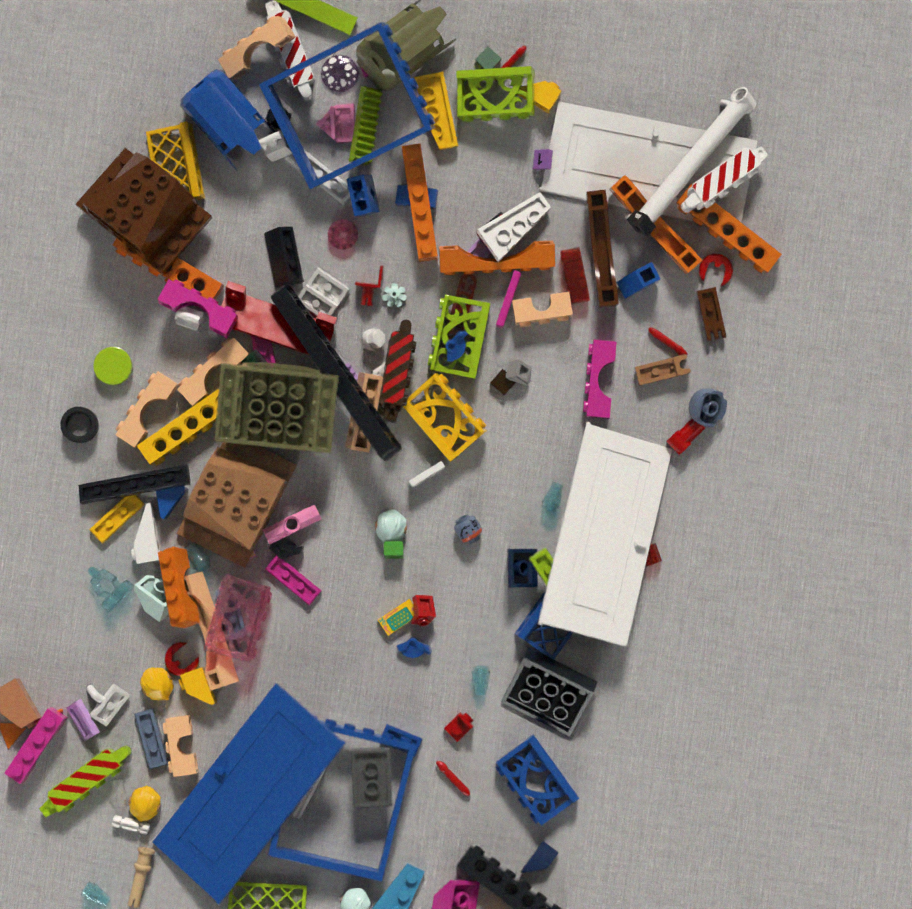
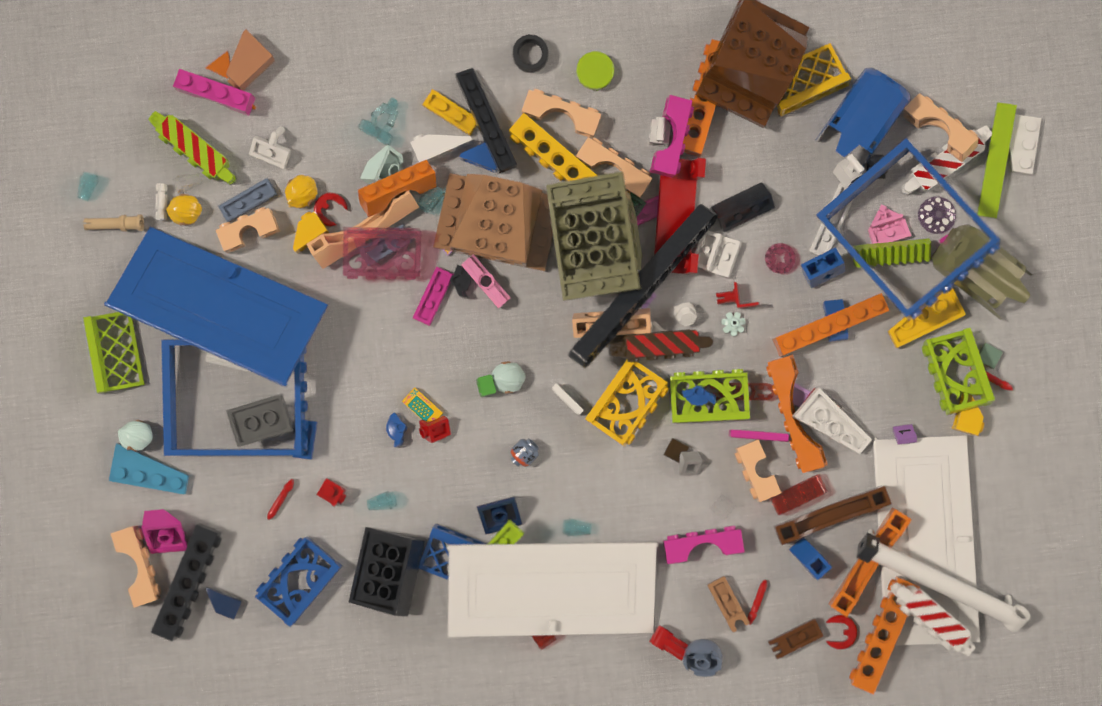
camera: 75 degrees right, 0 degrees up
(83, 720) = (249, 130): lavender tile -> none

